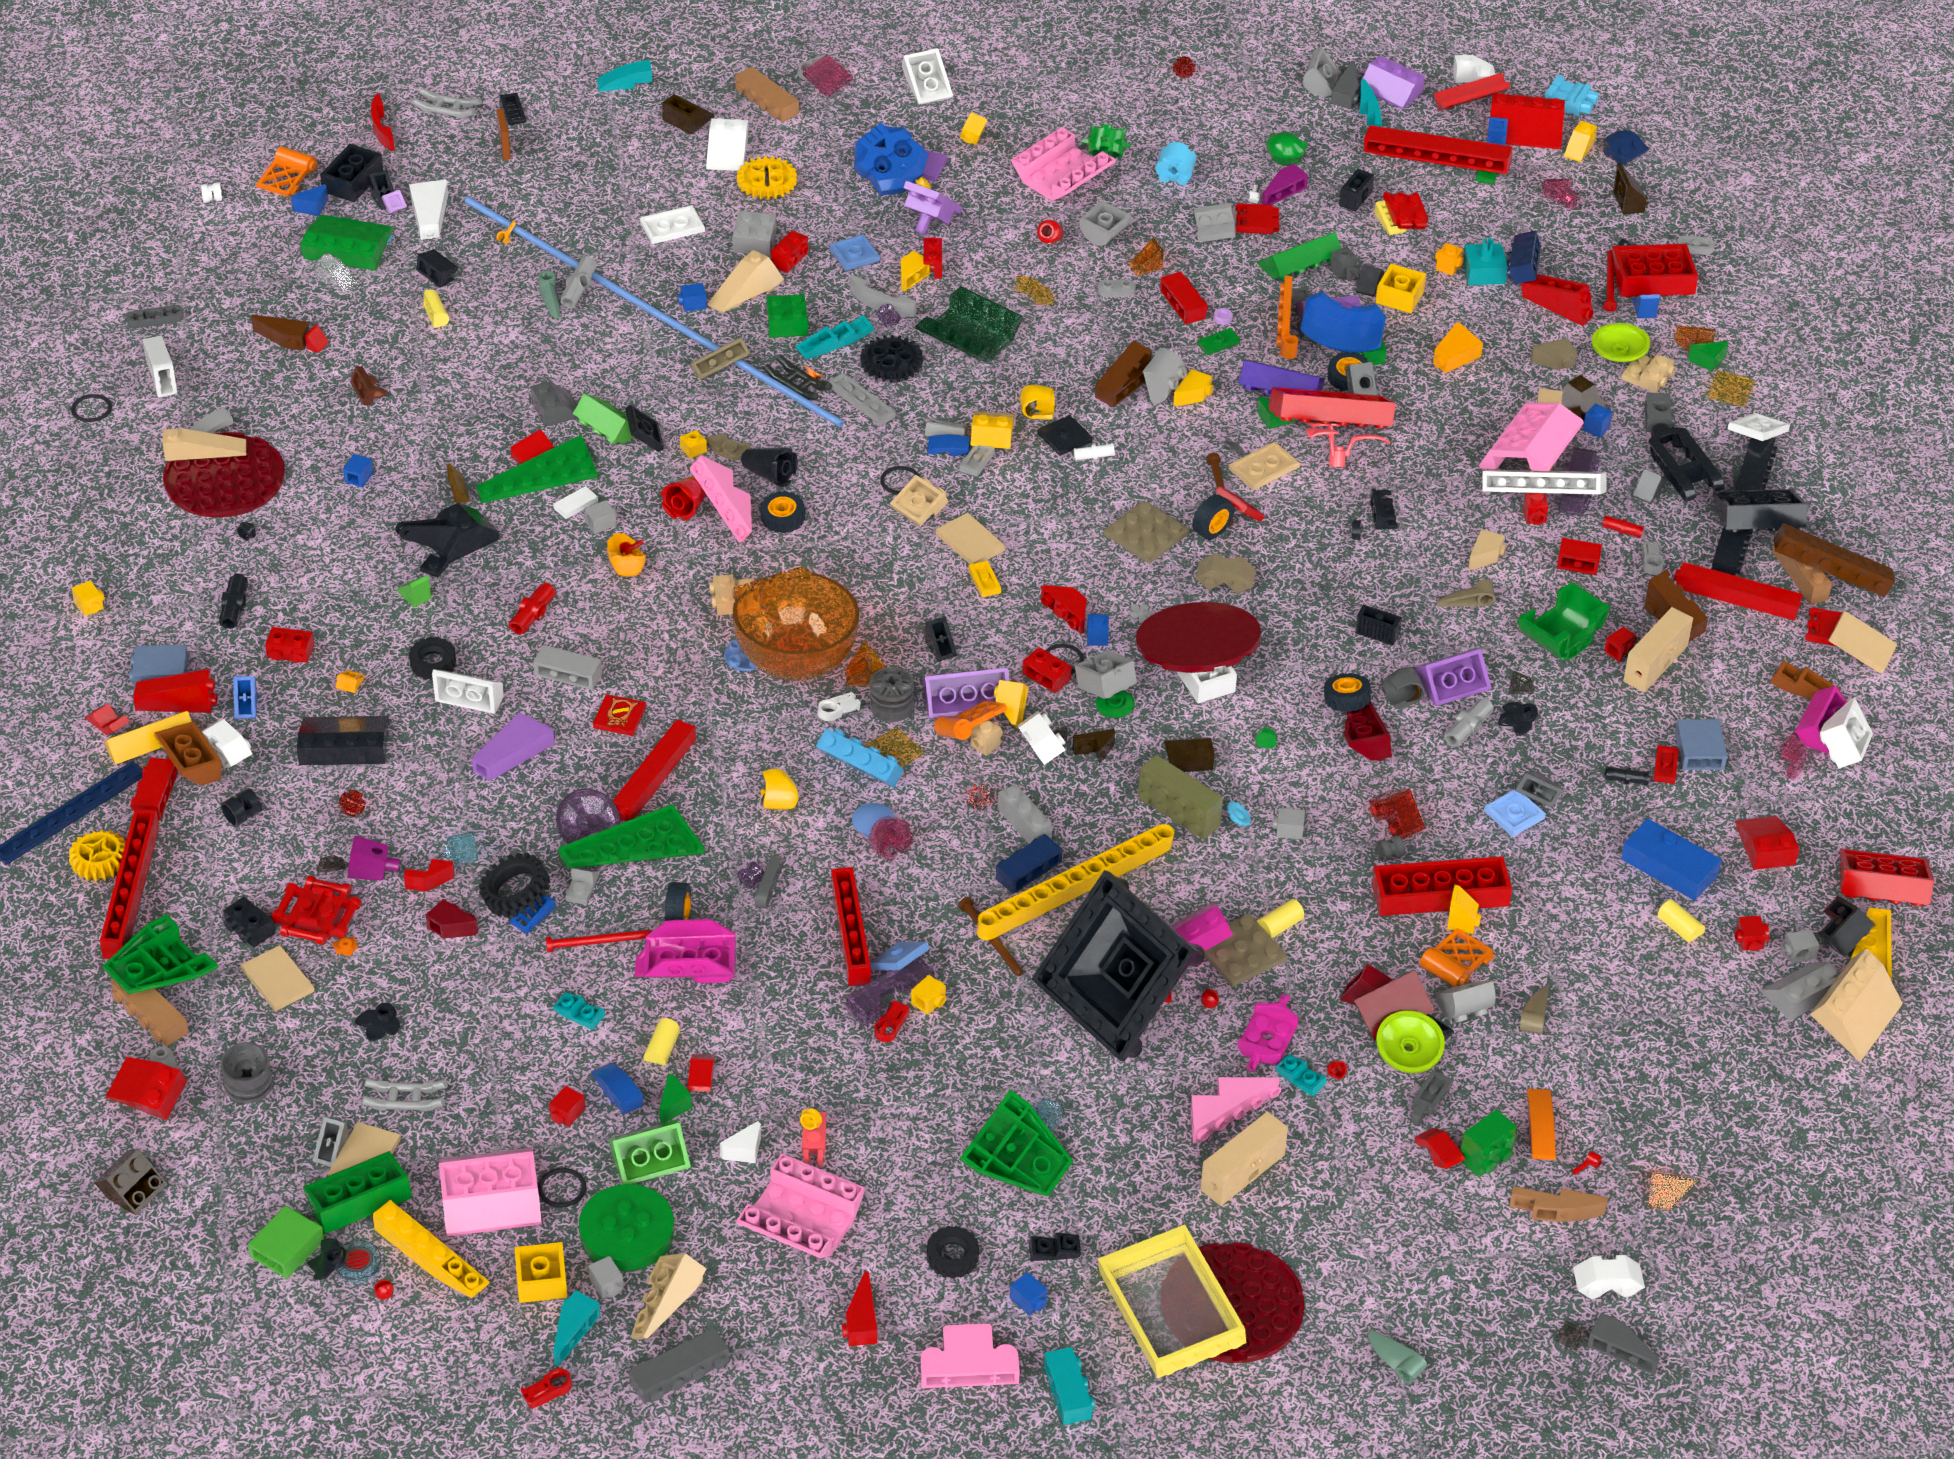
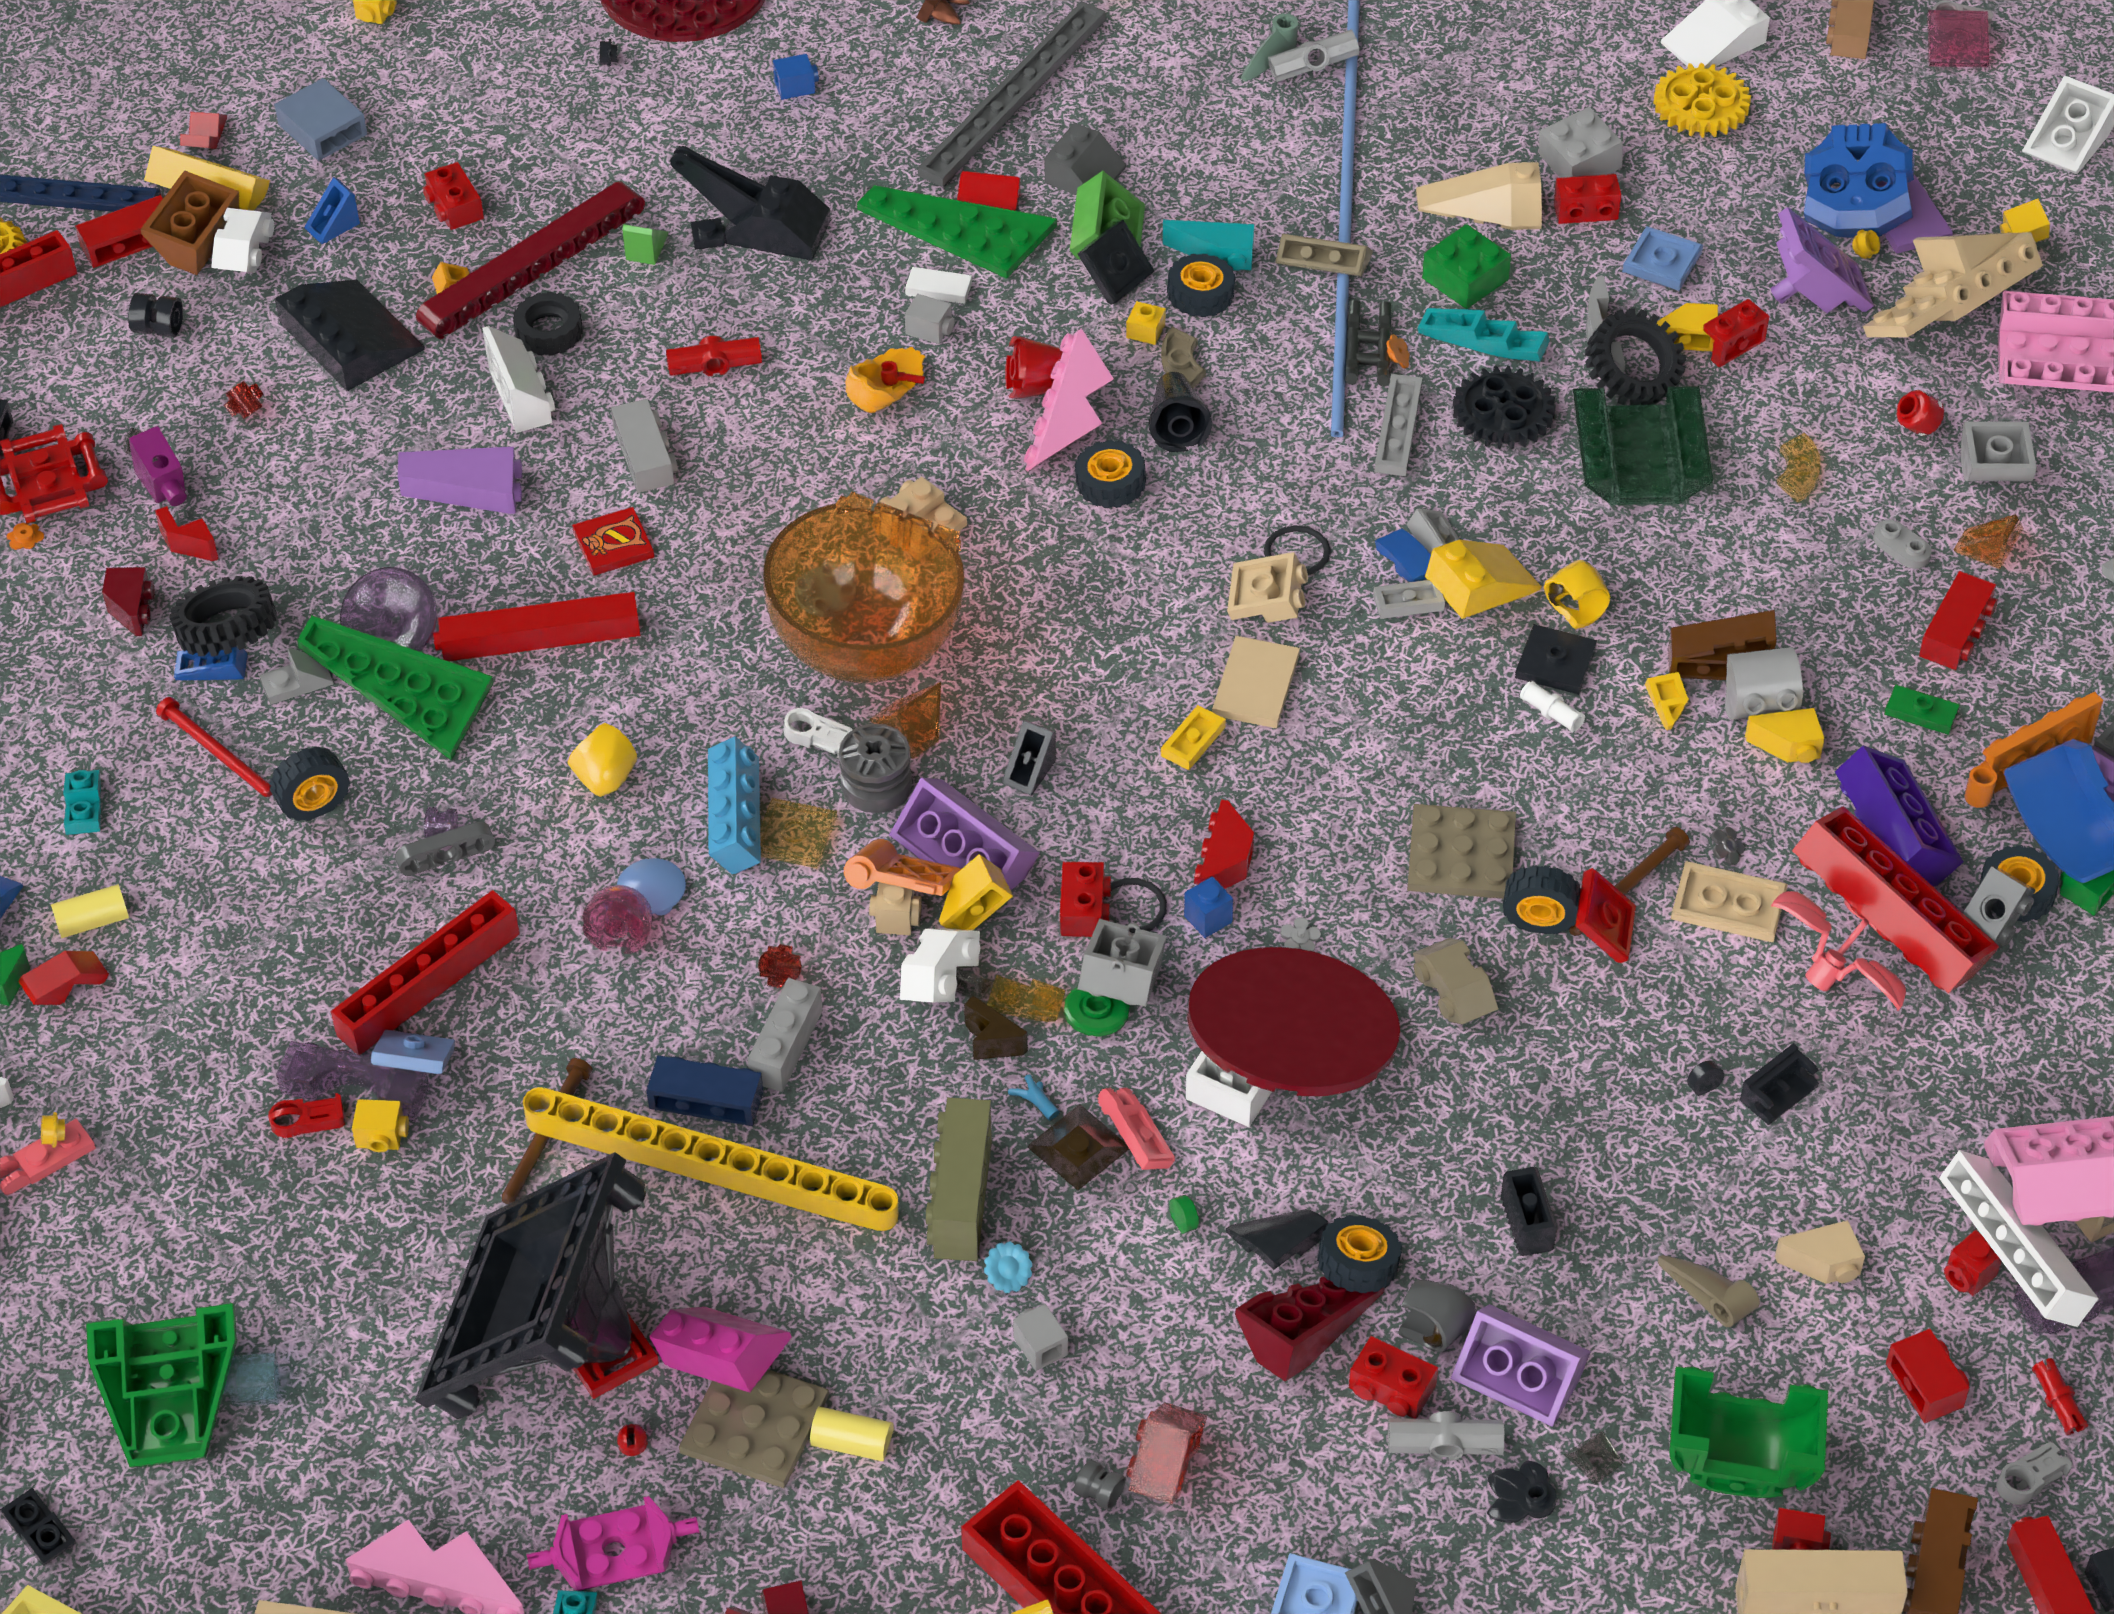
camera: 55 degrees right, 5 degrees up
(177, 693) = (285, 156): red slope -> none
(233, 601) = (482, 111): black piece -> none
(375, 641) = (529, 259): none -> dark red beam
(457, 484) = (859, 168): pearl gold slope -> none
(461, 848) = (254, 537): clear light blue brick -> none
(469, 401) = (1011, 94): none -> dark grey plate
(666, 390) = (1225, 240): none -> teal slope
(672, 224) = (1521, 73): white tile -> none
(689, 950) = (245, 848): dark pink slope -> none
(690, 411) = (1201, 285): none -> black wheel
(692, 297) = (1405, 166): blue brick -> none
(888, 315) = (1574, 358): clear purple wheel -> none
(922, 285) = (1658, 339): none -> black tyre
(989, 169) = (1956, 279): none -> tan wedge
(1087, 722) = (1031, 1002): none -> clear yellow slope
(1128, 414) = (1668, 697): none -> yellow slope
(1146, 752) = (1036, 1096): none -> dark azure bar
(1200, 727) = (1136, 1128): none -> coral hinge
(1223, 316) = (1978, 684): lavender tile -> none
(1307, 714) = (1280, 1236): none -> black slope
(1423, 720) = (1392, 1378): none -> red brick

